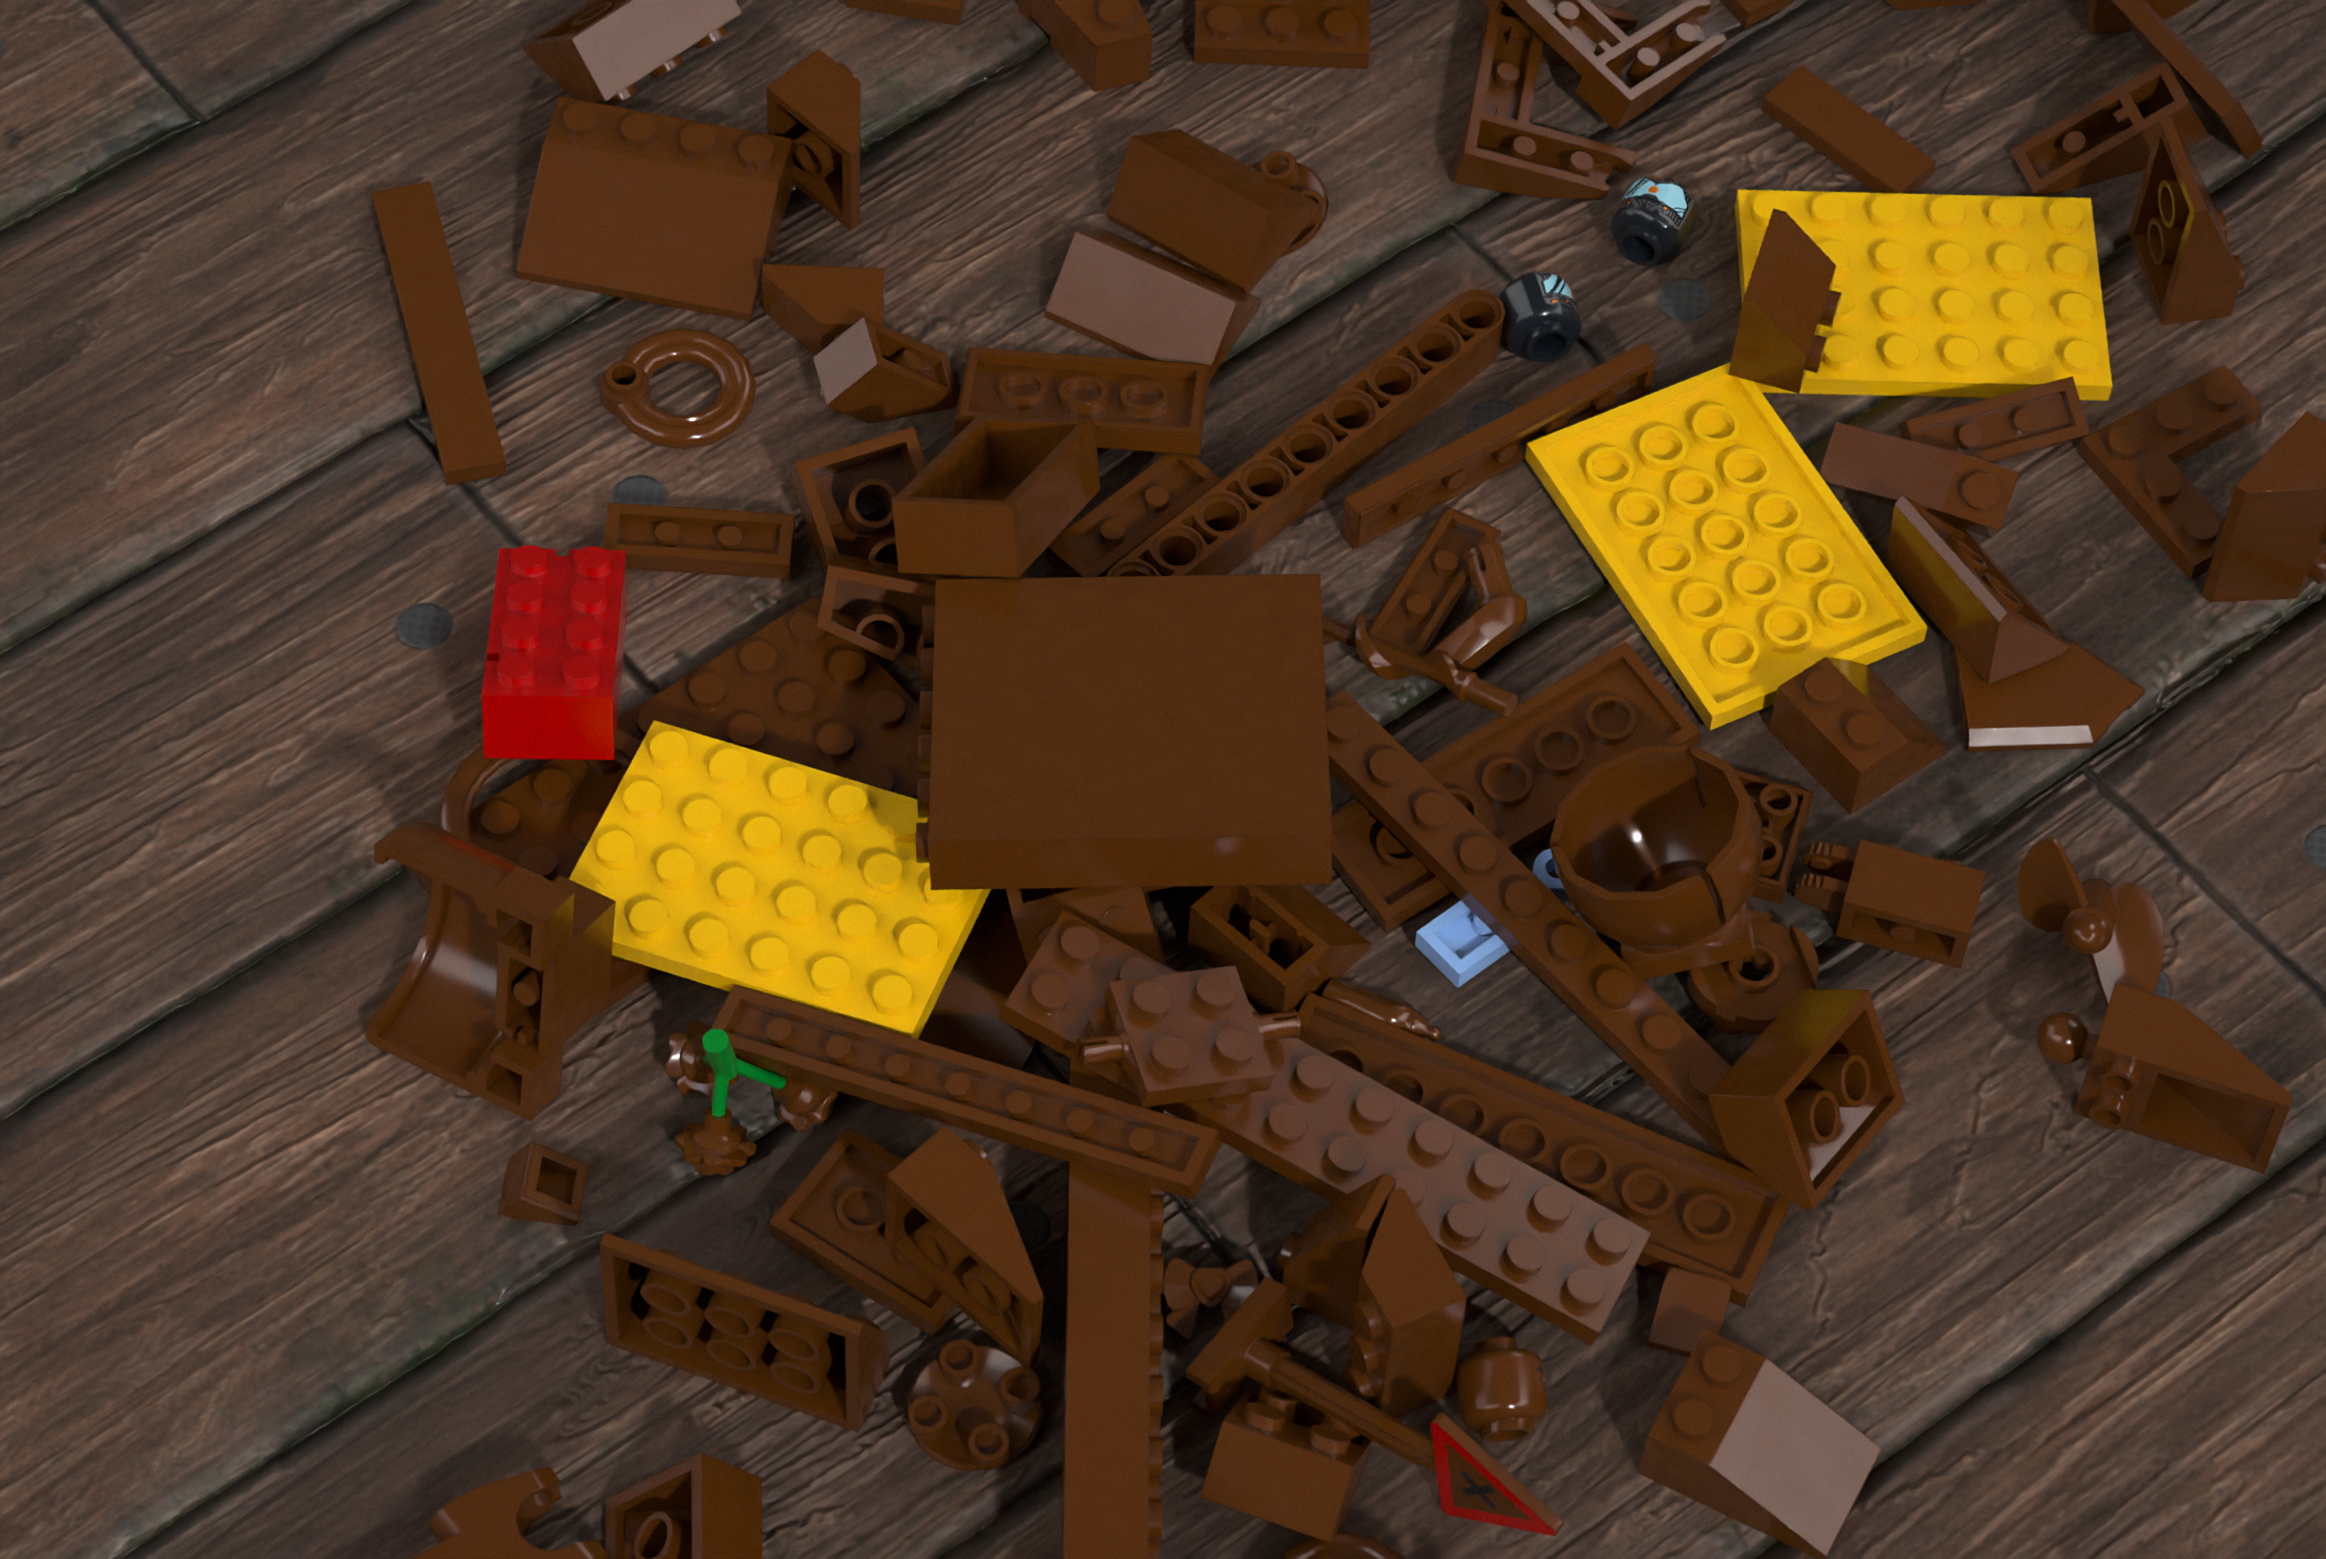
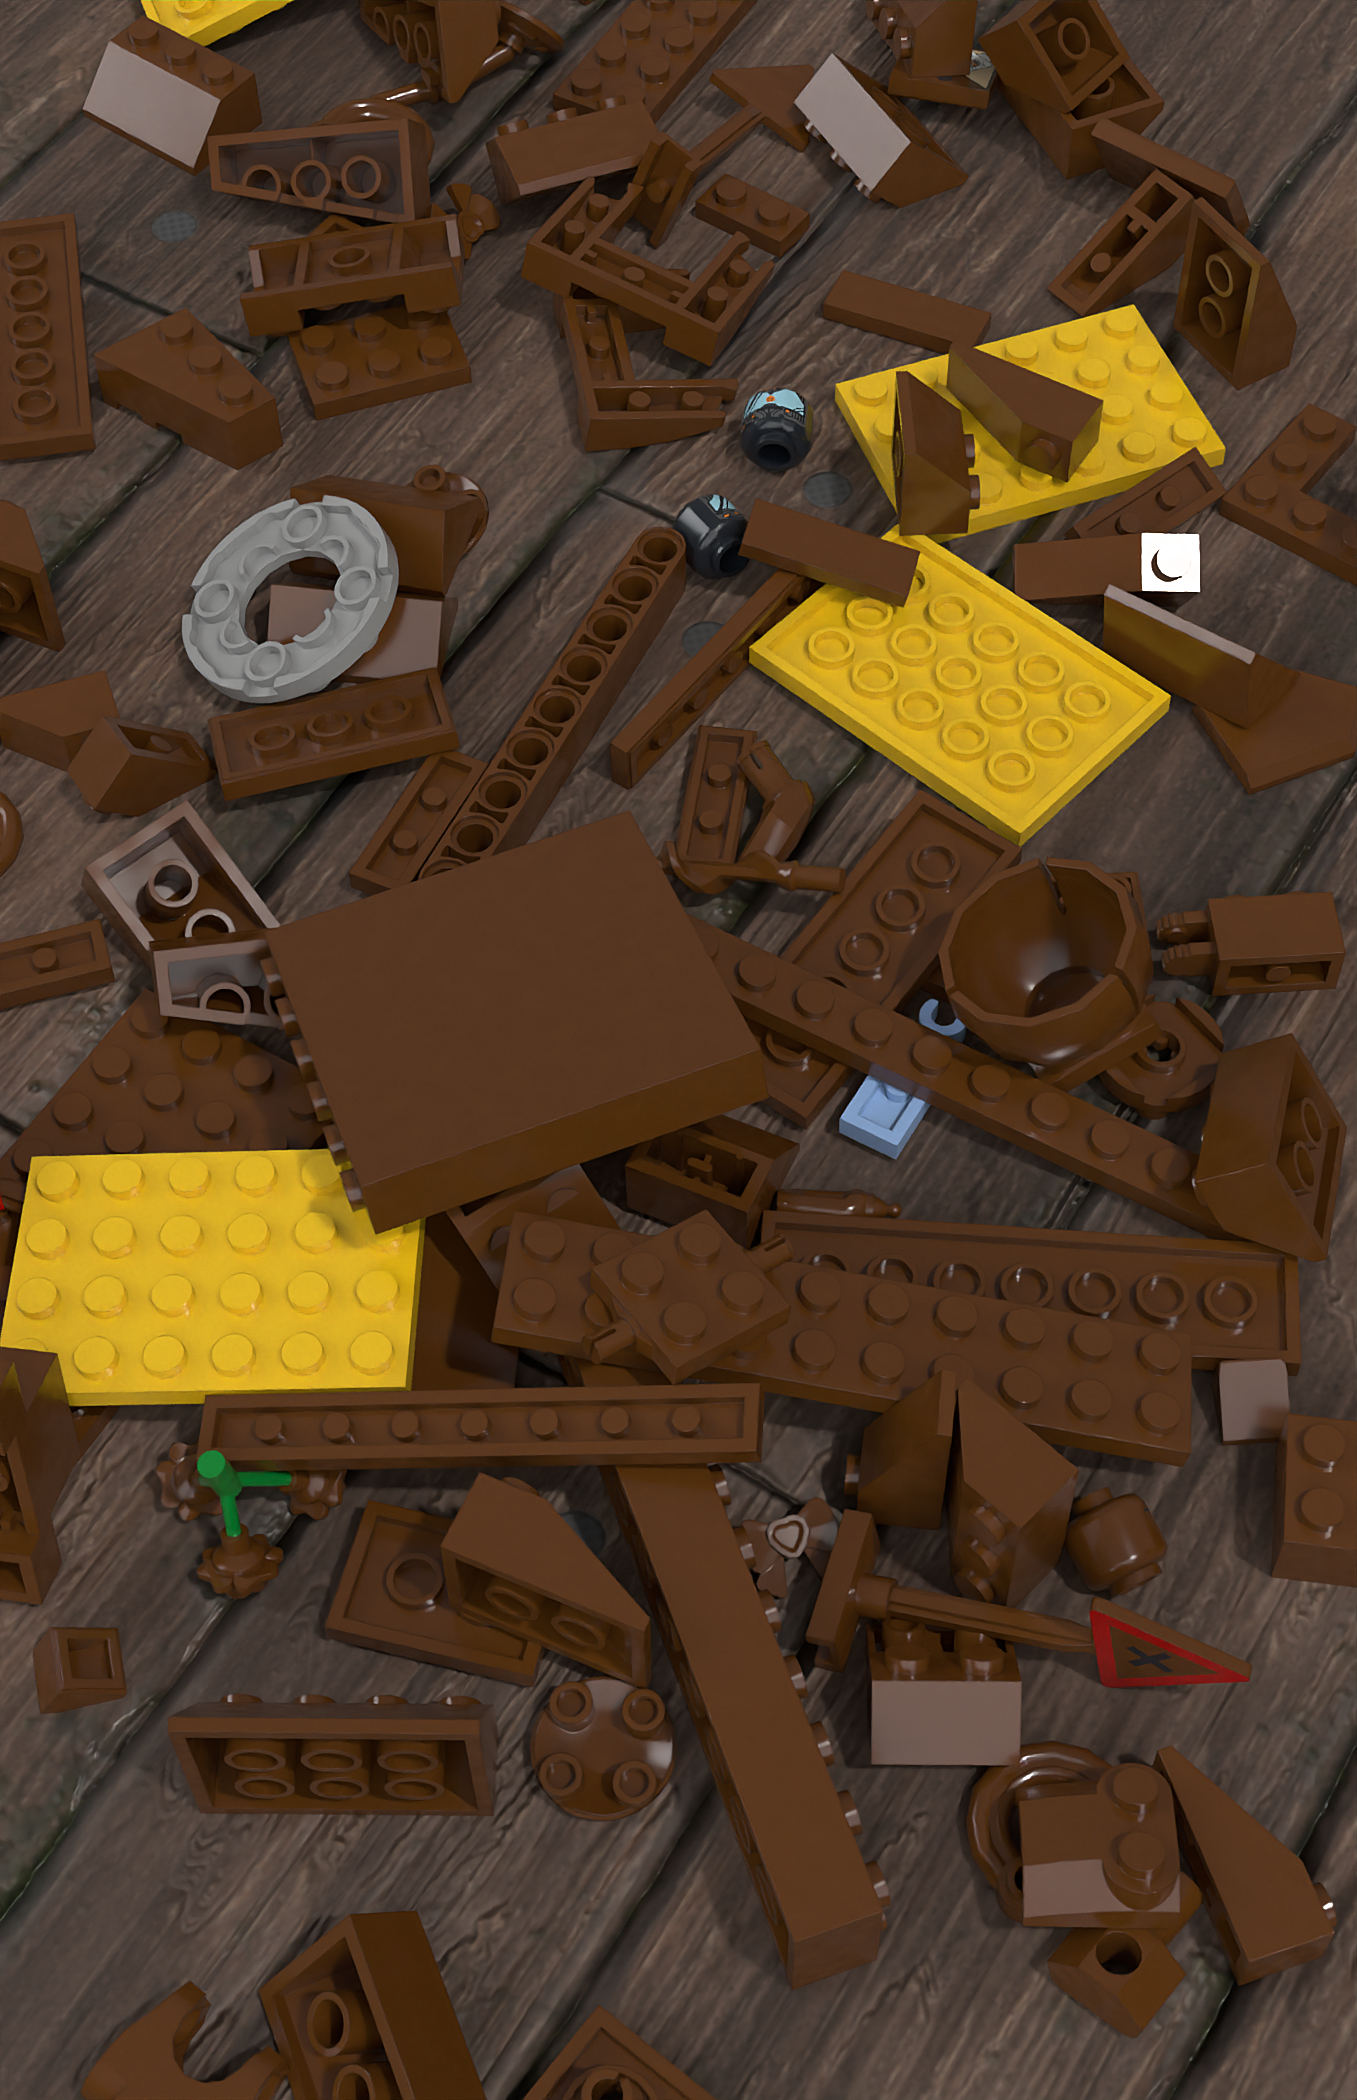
camera: 15 degrees left, 0 degrees up
(995, 497) = (288, 841): reddish brown piece -> none
(1055, 197) = (246, 556): none -> light grey plate
(1641, 372) = (829, 553): none -> reddish brown tile
(1851, 731) = (1144, 810): reddish brown slope -> none
(1917, 294) = (1026, 412): none -> reddish brown slope

